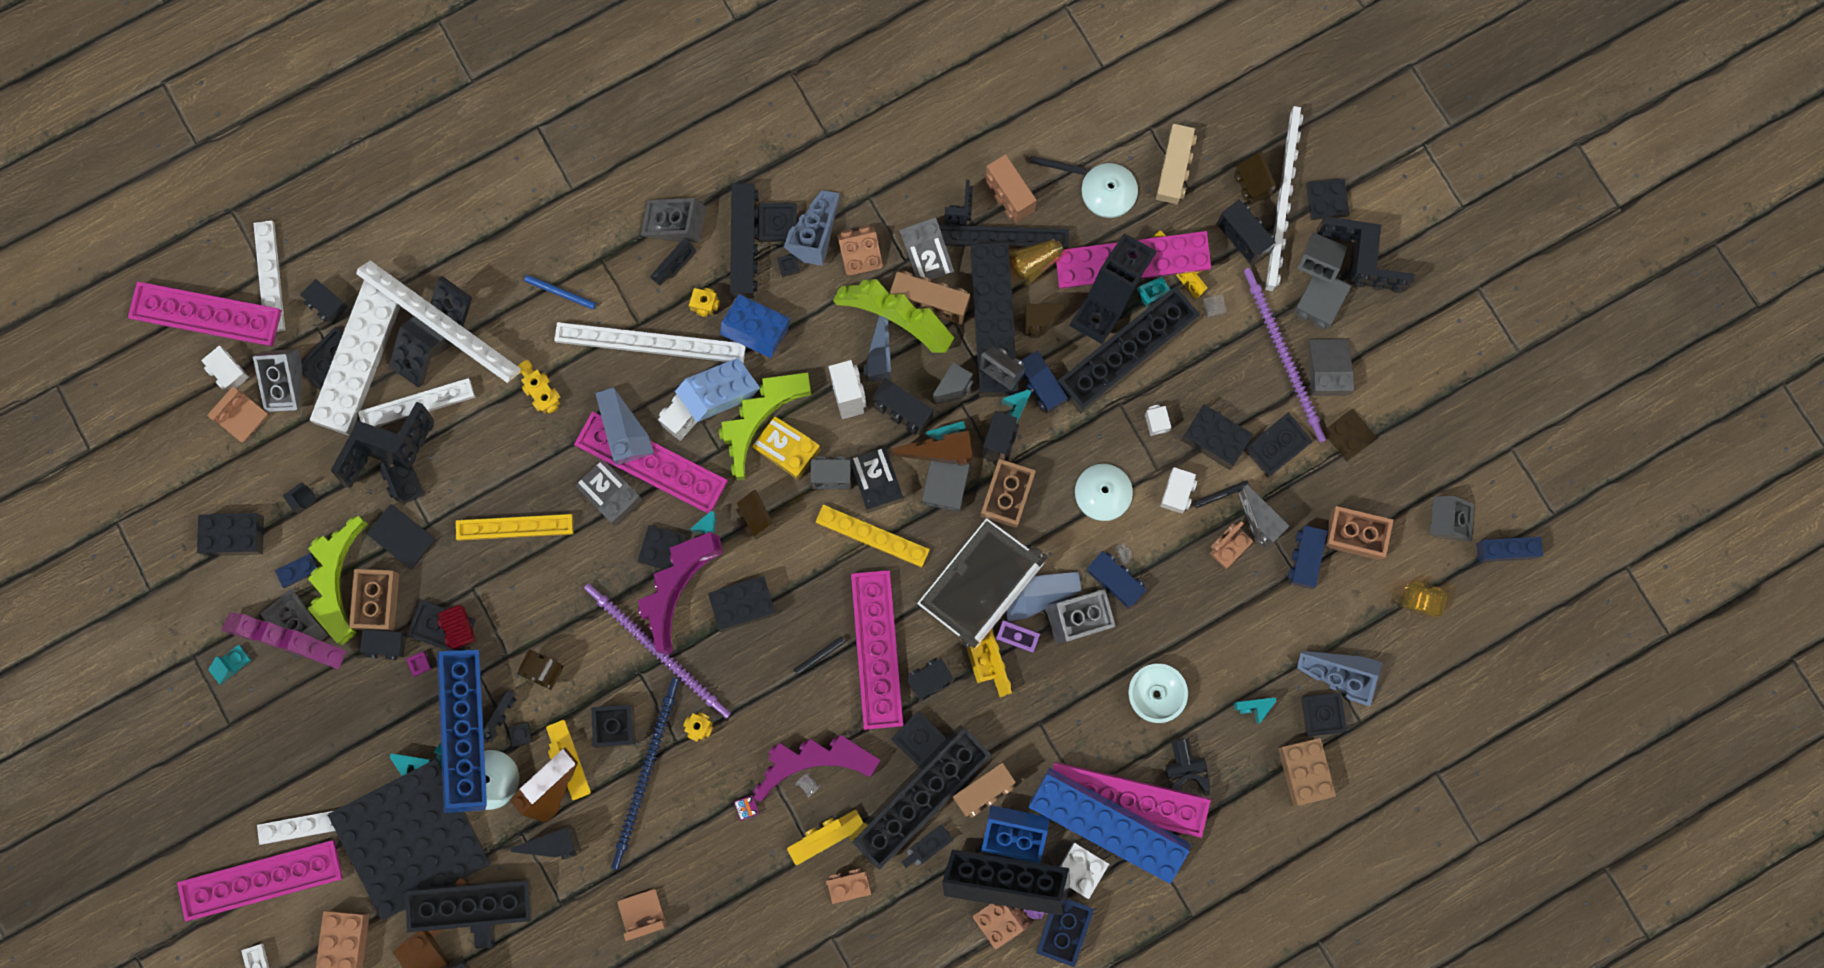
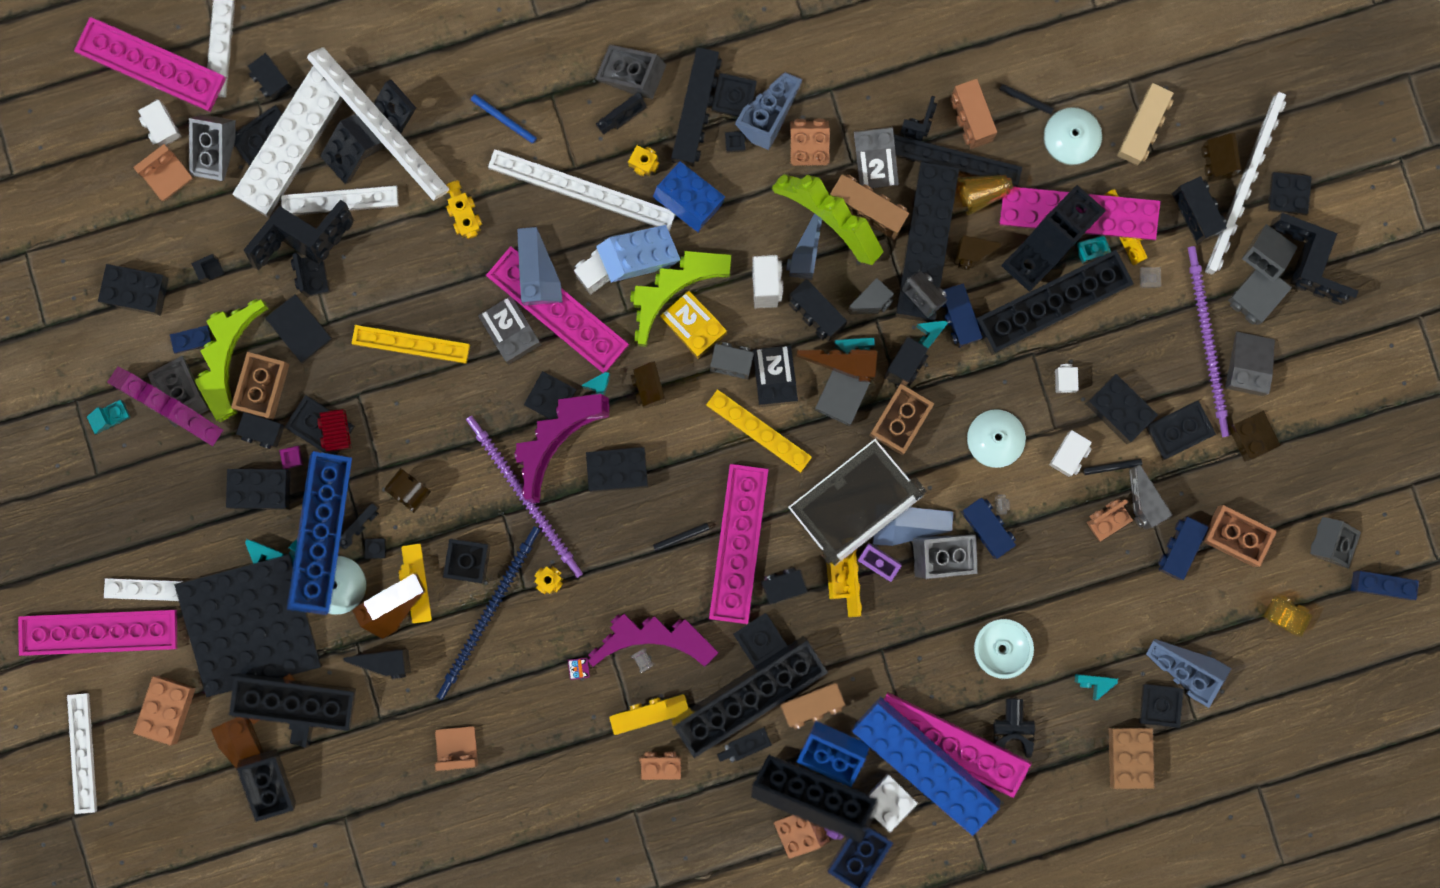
camera: 15 degrees right, 5 degrees up
(392, 702) = (258, 489): none -> black brick

